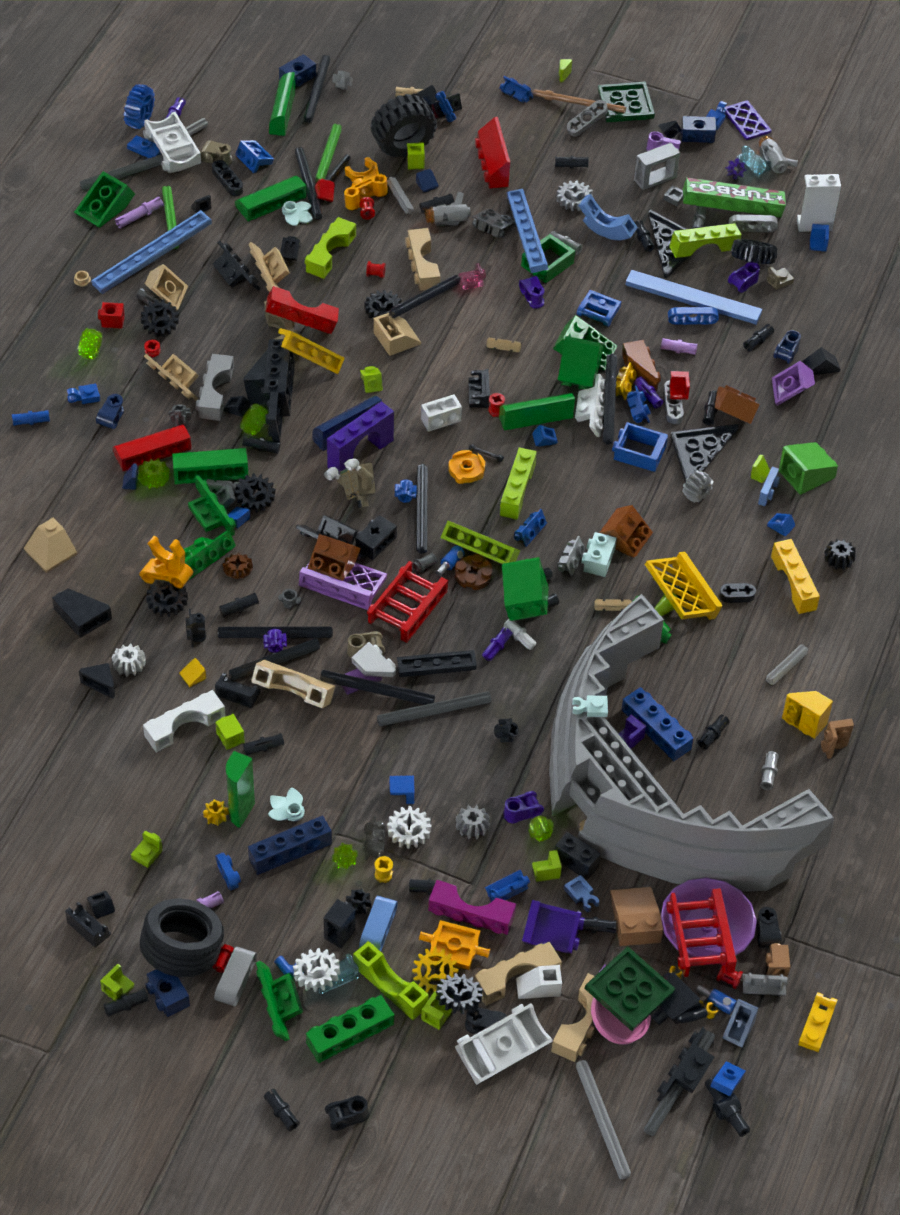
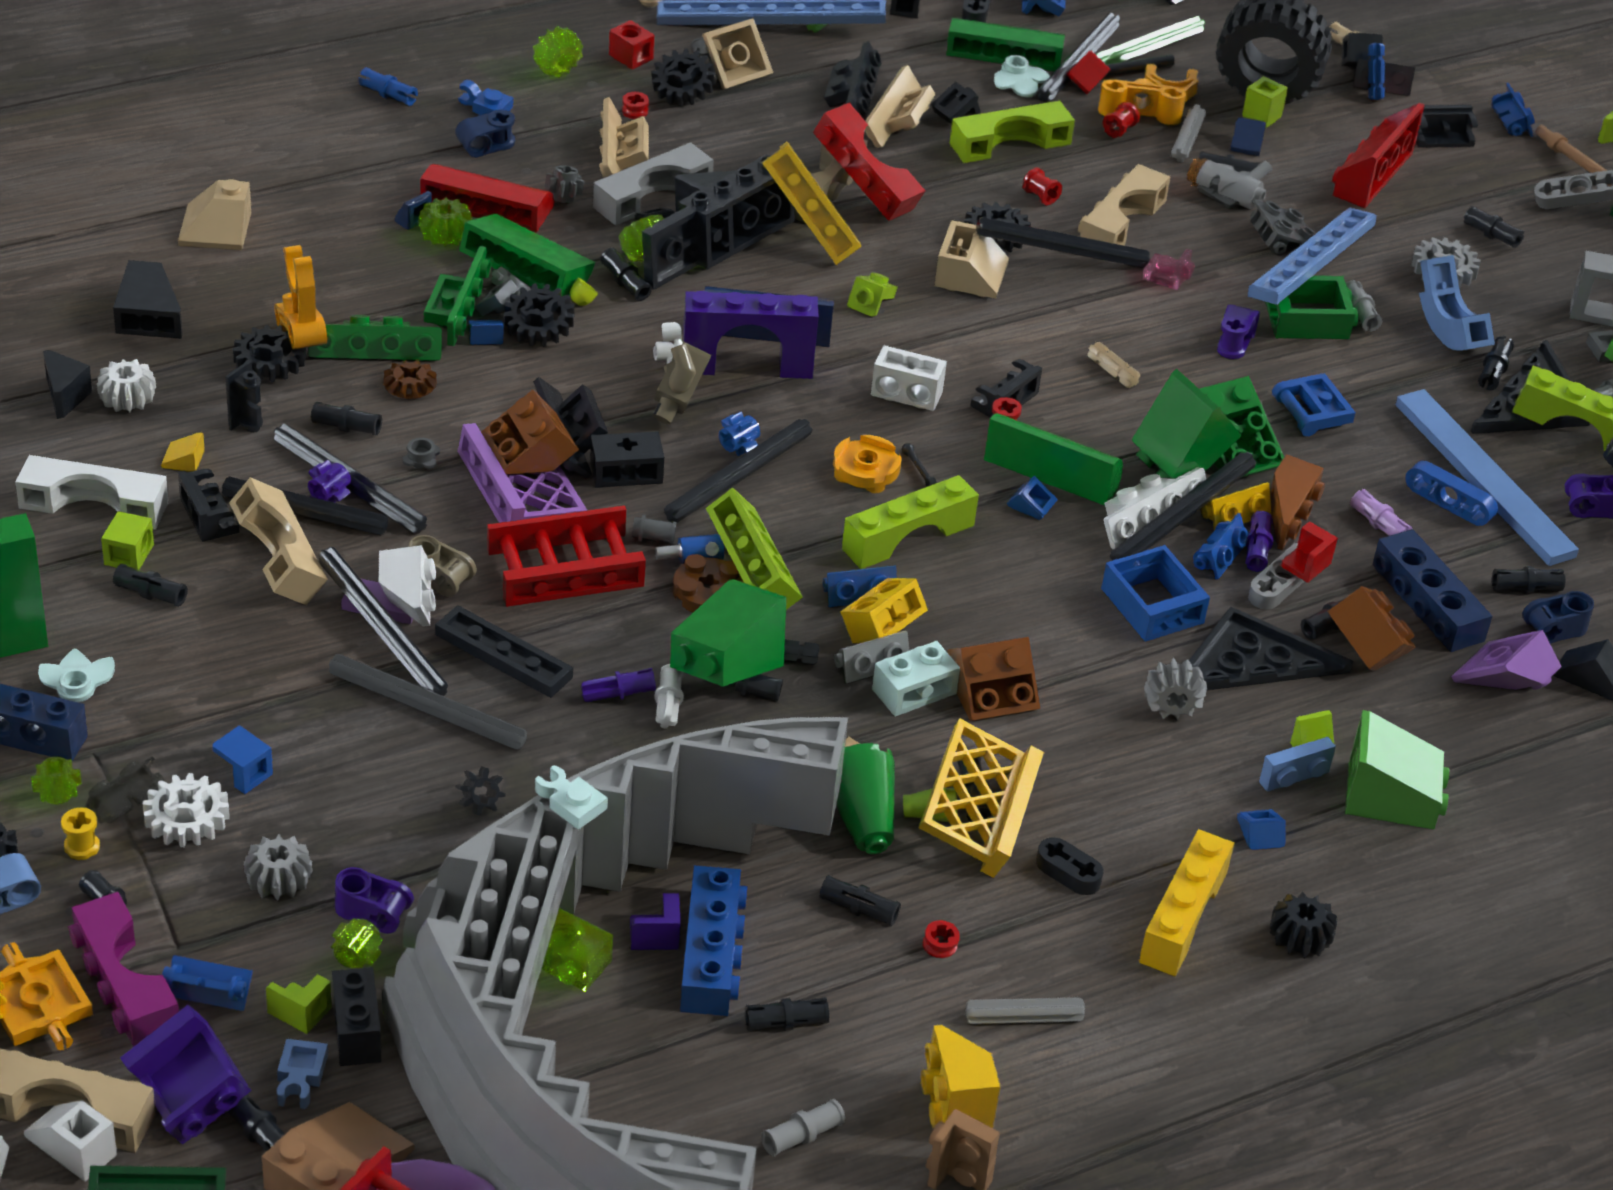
camera: 40 degrees right, 10 degrees down
(255, 467) = (582, 293): none -> neon yellow hinge
(501, 111) = (1447, 126): none -> black hinge
(557, 533) = (884, 609): none -> yellow brick
(673, 668) = (836, 891): none -> black pin
(728, 664) = (948, 931): none -> red bush
(733, 369) = (1432, 590): none -> dark blue brick

